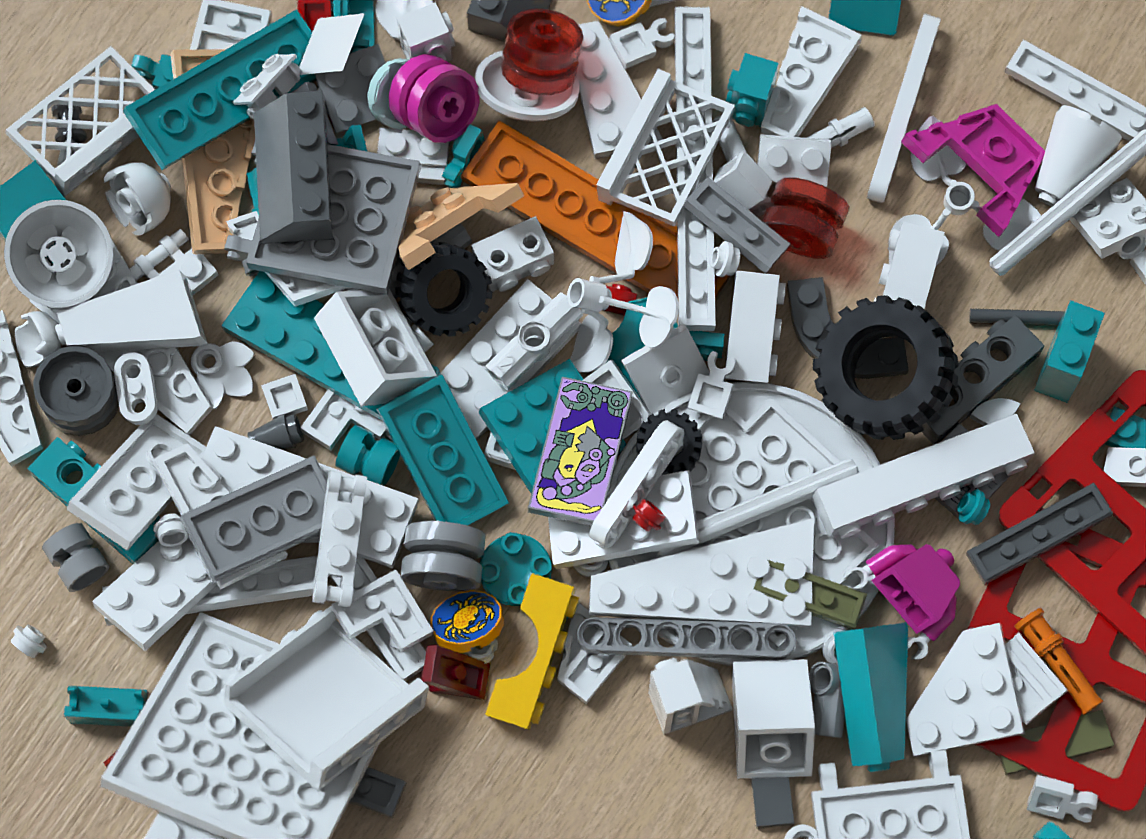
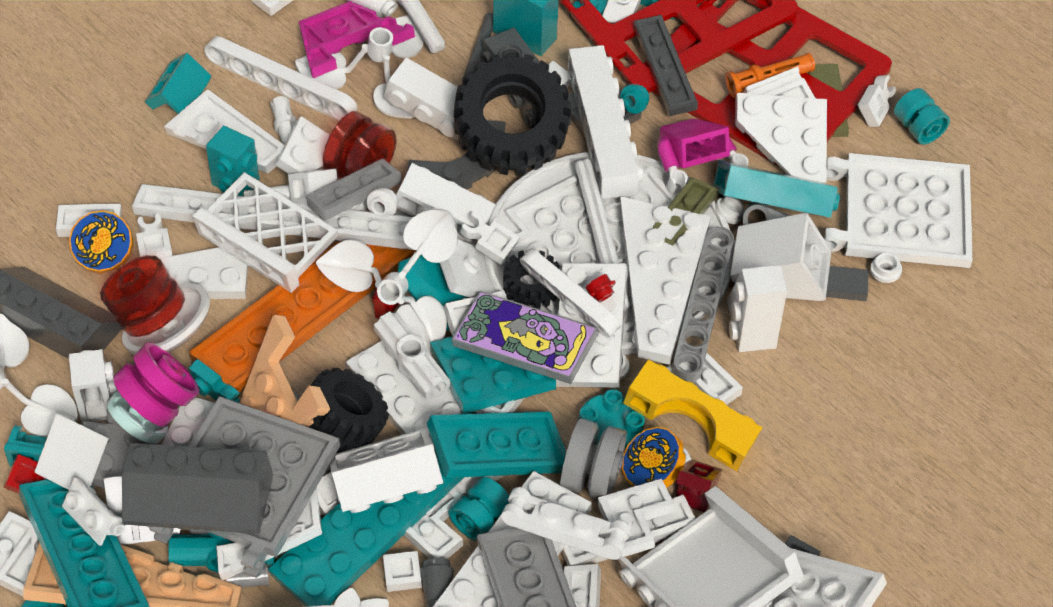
camera: 80 degrees left, 20 degrees down
(515, 254) = (316, 353): white brick -> none

